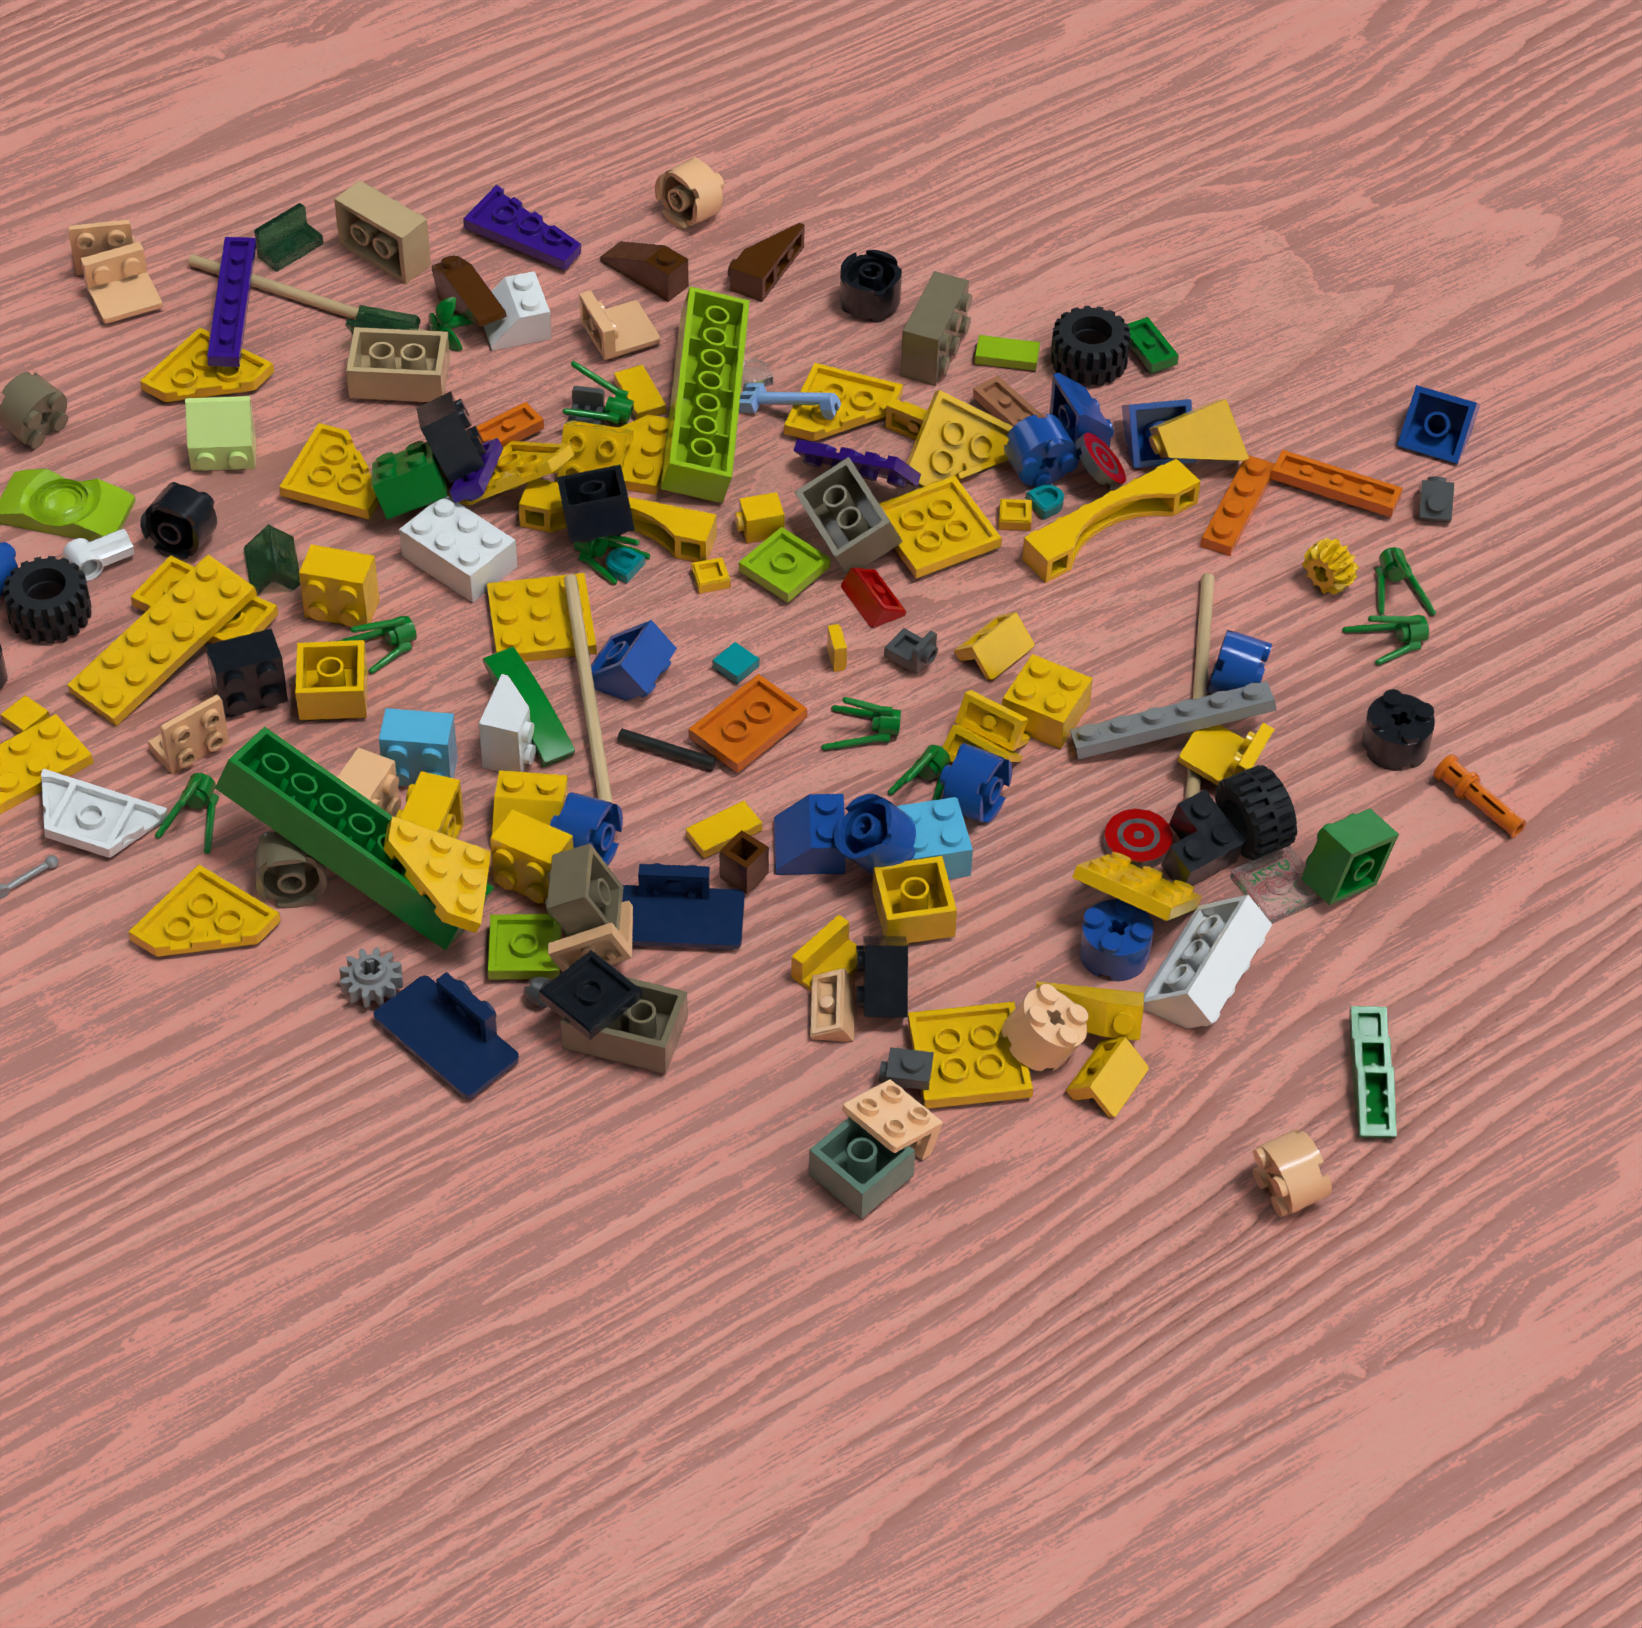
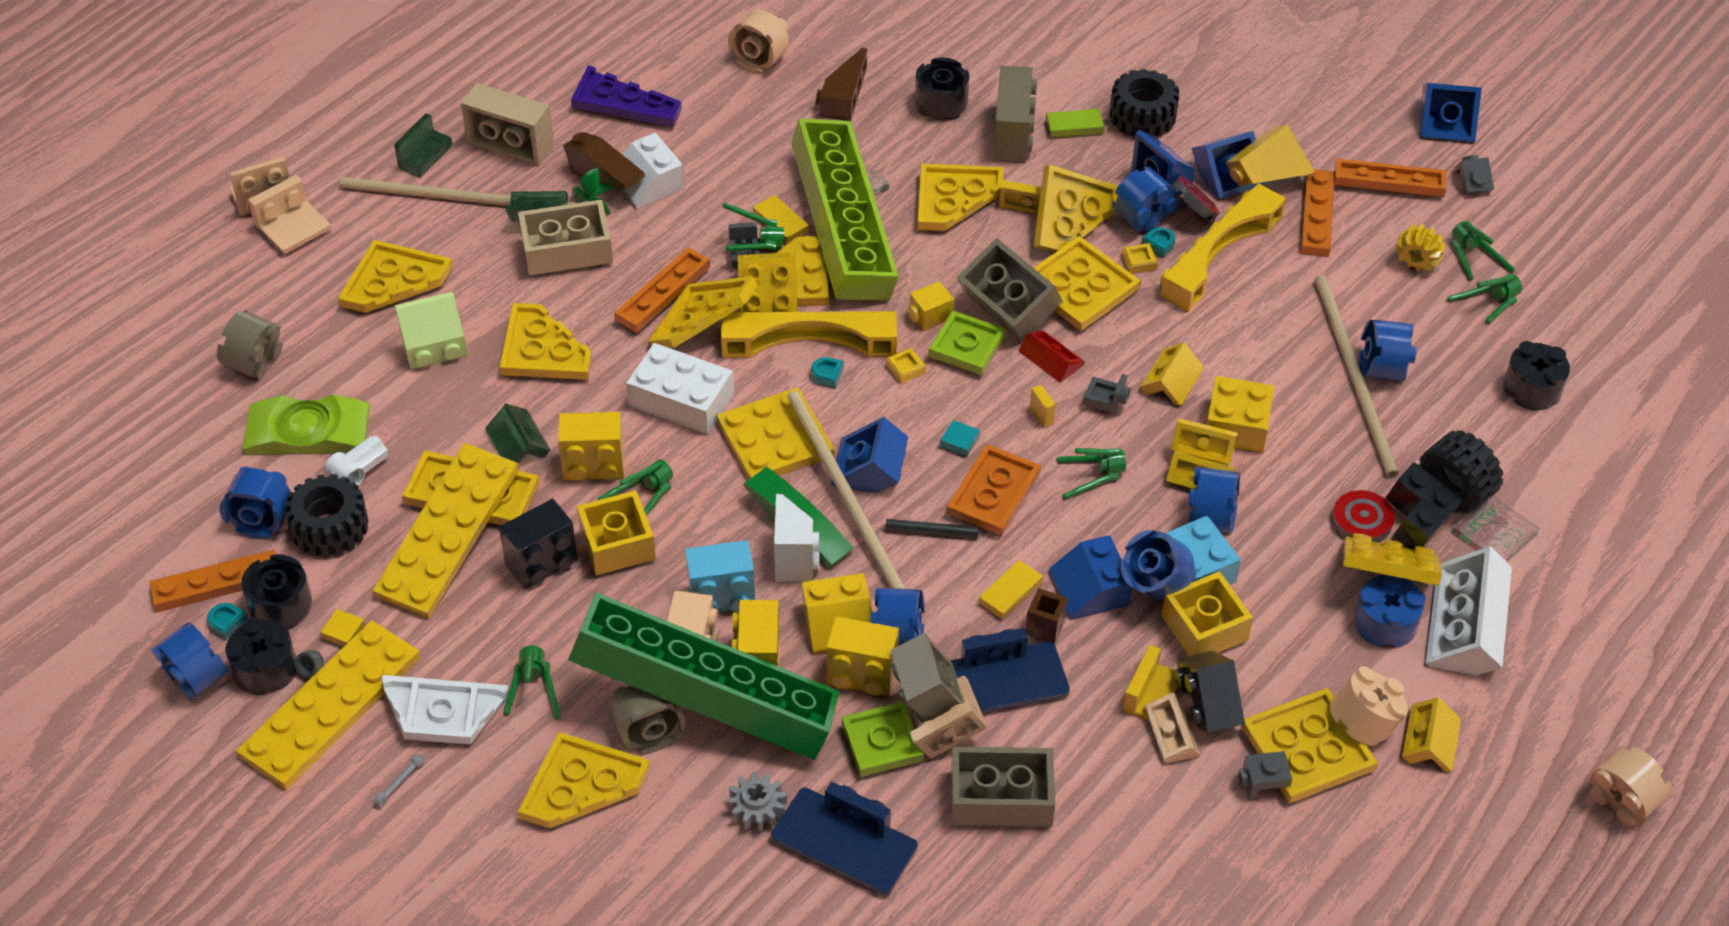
camera: 15 degrees left, 0 degrees up
(179, 520) = (423, 417): black brick -> none
(191, 735) = (506, 614): light nougat bracket -> none
(231, 302) = (396, 212): dark purple plate -> none
(408, 479) = (618, 336): green brick -> none
(443, 869) = (797, 687): yellow plate -> none
(450, 437) = (648, 290): black brick -> none
(474, 484) = (675, 316): dark purple plate -> none
(532, 991) = (912, 777): dark grey hinge -> none
(590, 994) = (970, 771): black tile -> none
(595, 504) = (795, 324): black brick -> none
(598, 547) = (796, 359): green plant -> none
(616, 328) = (739, 167): light nougat bracket -> none
(650, 266) = (746, 108): reddish brown slope -> none
(756, 394) = (950, 193): light blue hinge -> none
(859, 1167) = (1263, 868): sand green brick -> none
(868, 465) = (1016, 240): dark purple wing -> none
(895, 1119) = (1279, 820): light nougat bracket -> none
(928, 767) = (1164, 492): green plant -> none
(1003, 401) = (1094, 165): nougat plate -> none
(1109, 1011) = (1421, 675): yellow slope -> none
(1151, 346) = (1193, 95): green plate -> none
(1173, 719) = (1352, 407): light grey plate -> none
(1222, 753) = (1405, 428): yellow bracket -> none
(1349, 856) = (1552, 492): green brick -> none
(1372, 1072) = (1647, 679): slope -> none
(1468, 786) = (1611, 410): orange pin -> none

